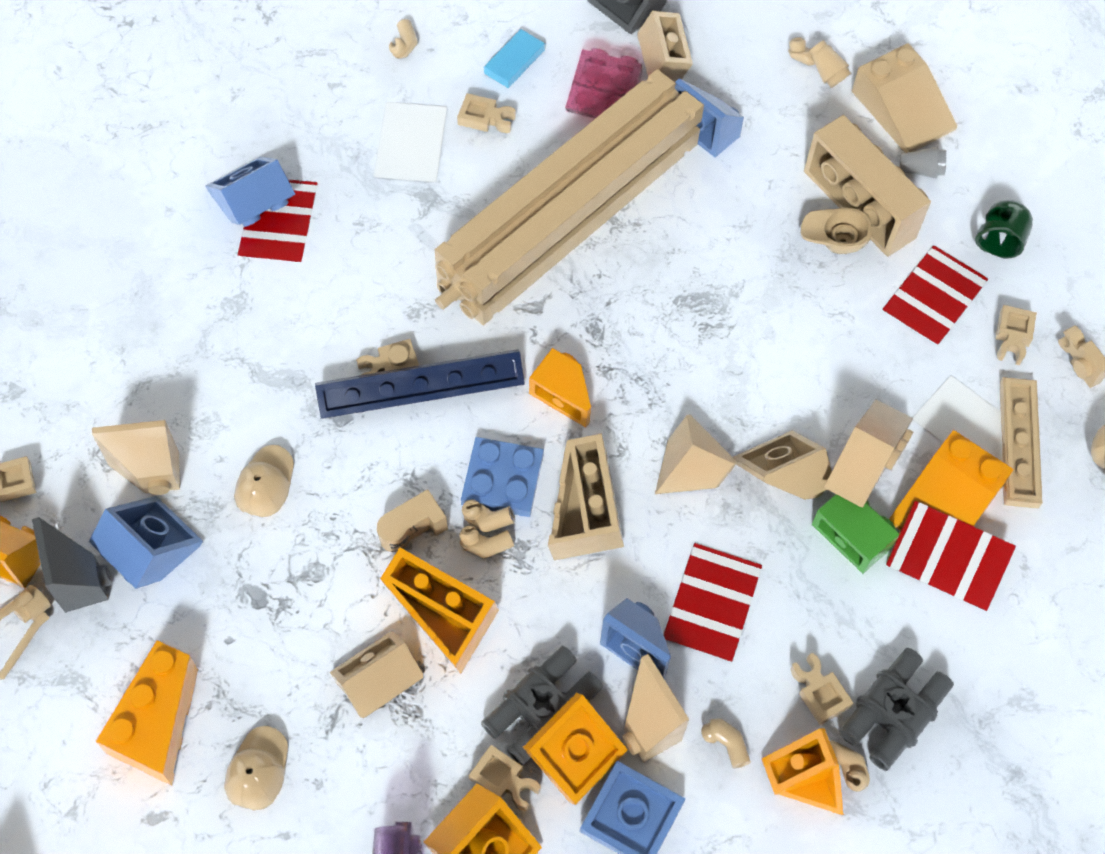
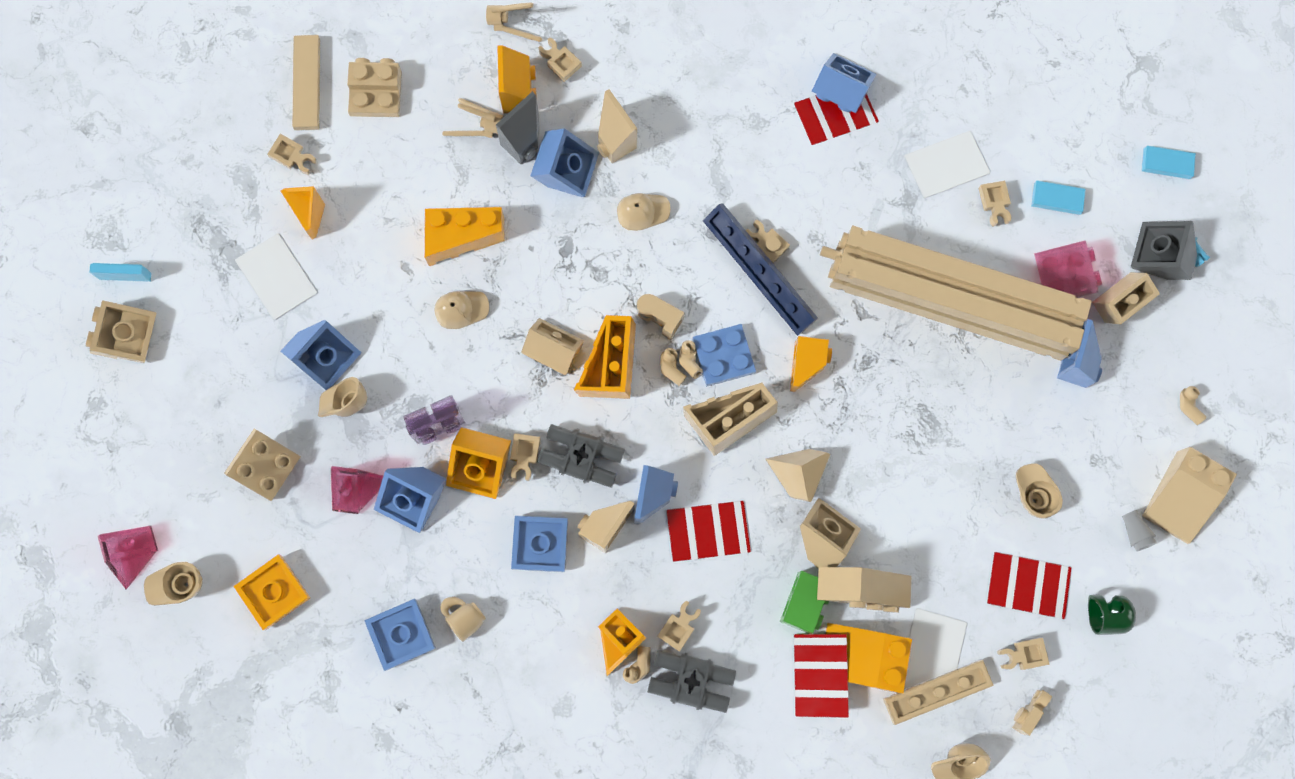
camera: 60 degrees right, 15 degrees up
(406, 43) = (1023, 117): tan arm -> none
(575, 748) = (561, 489): light orange plate -> none
(730, 737) = (619, 581): tan arm -> none
(829, 64) = (1186, 424): tan cone -> none
(864, 179) = (1087, 496): tan brick -> none

